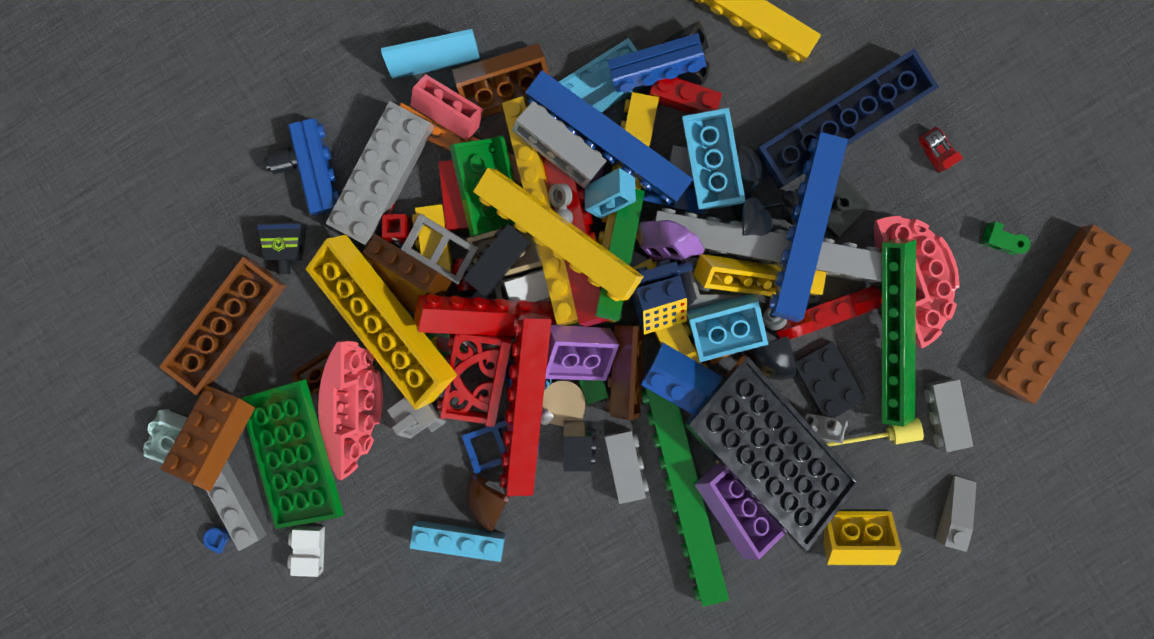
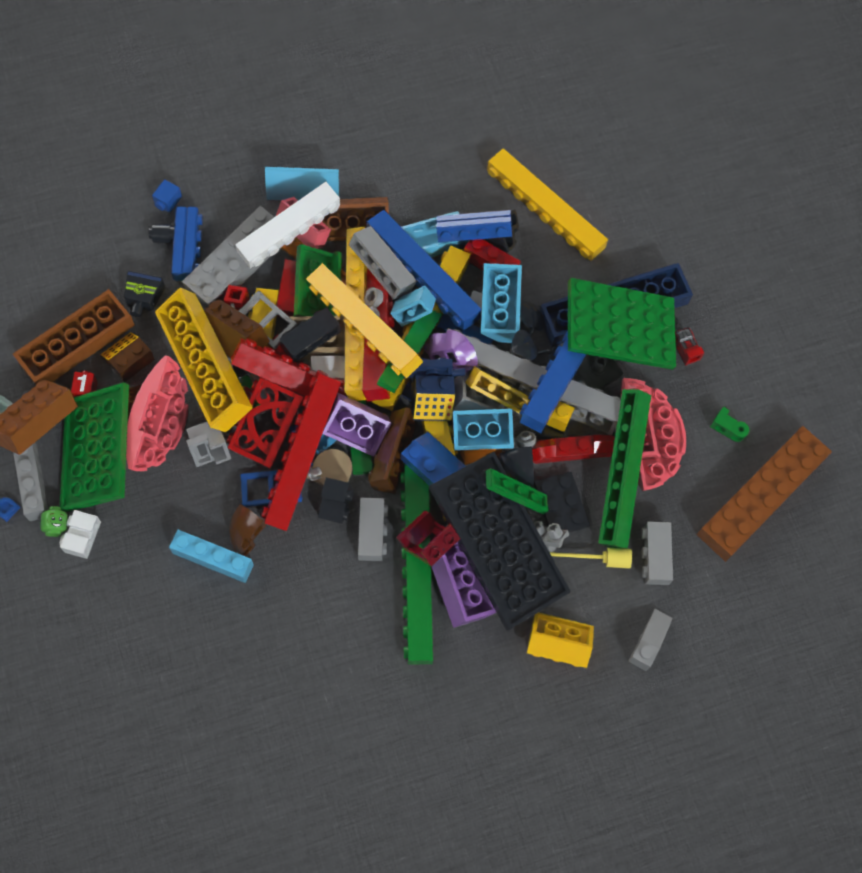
camera: 10 degrees right, 20 degrees down
(254, 377) = (83, 383): none -> red brick
(271, 109) = (167, 196): none -> blue brick
(273, 546) = (53, 522): none -> bright green head
(290, 327) = (128, 356): none -> reddish brown slope
(432, 124) = (288, 225): none -> white brick
(680, 466) = (420, 530): none -> dark red panel
(782, 395) = (516, 491): none -> green tile
(864, 156) = (621, 324): none -> green plate

